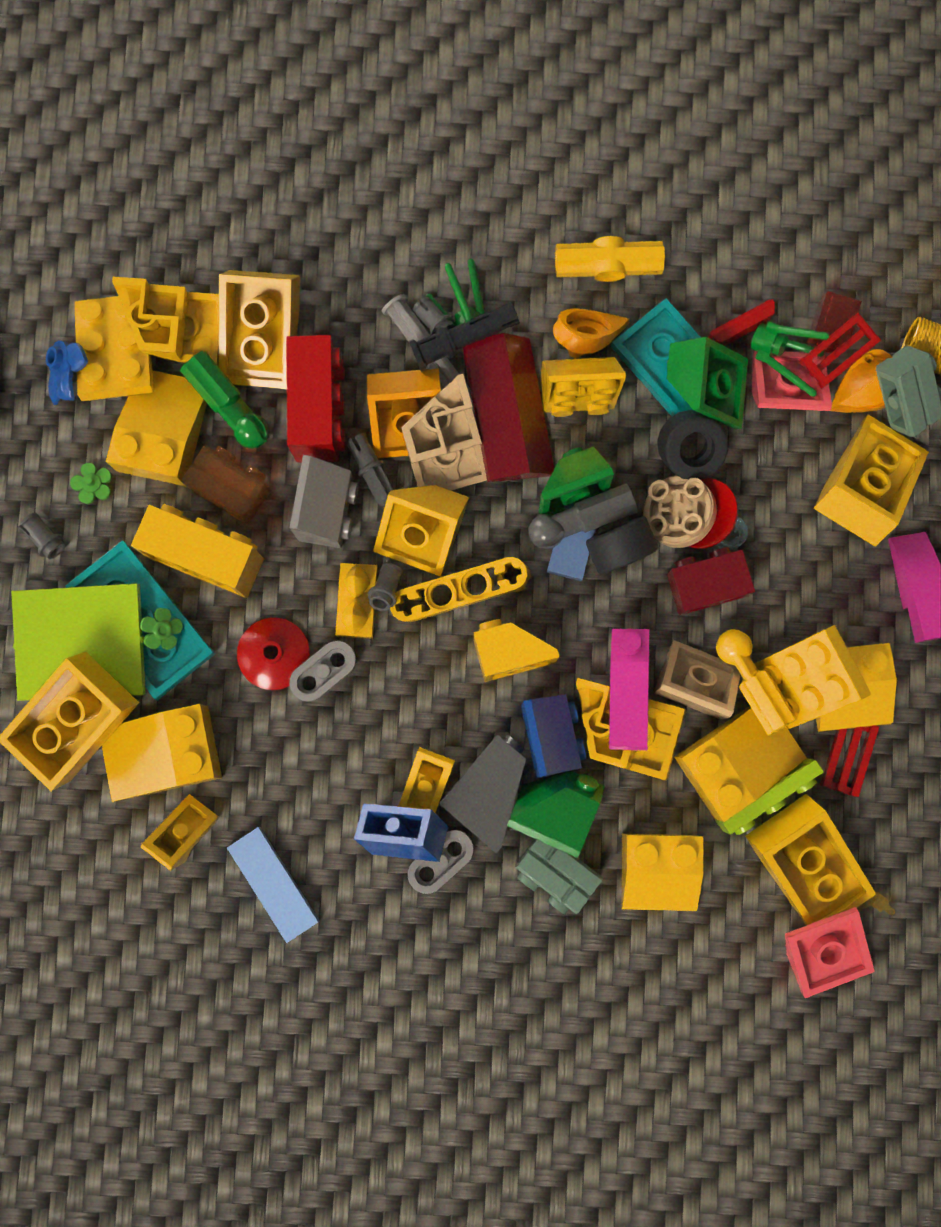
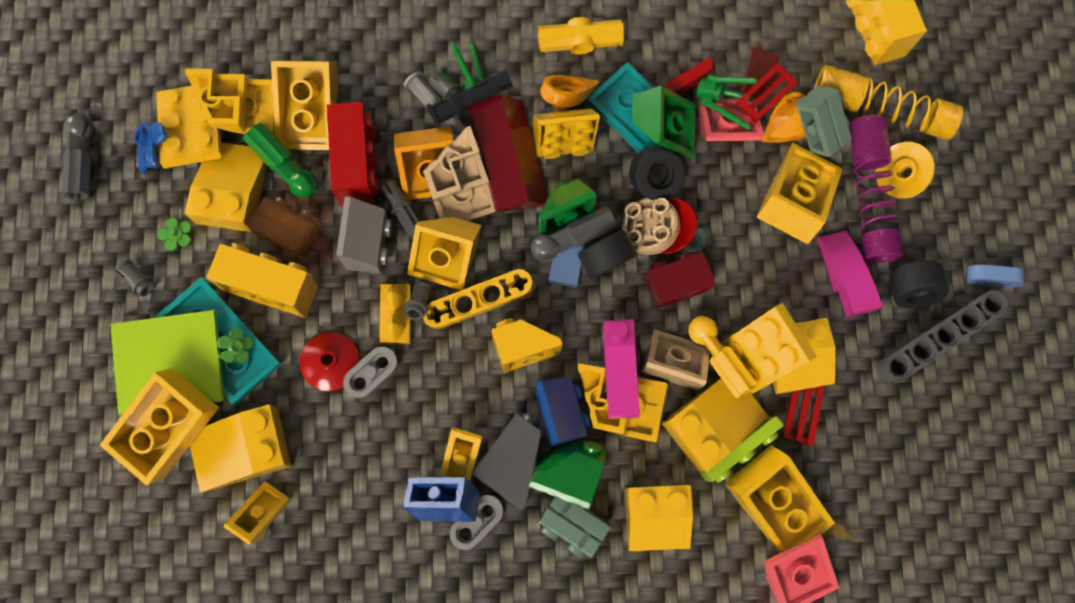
camera: 10 degrees left, 5 degrees down
(273, 884) = (338, 552): light blue tile -> none

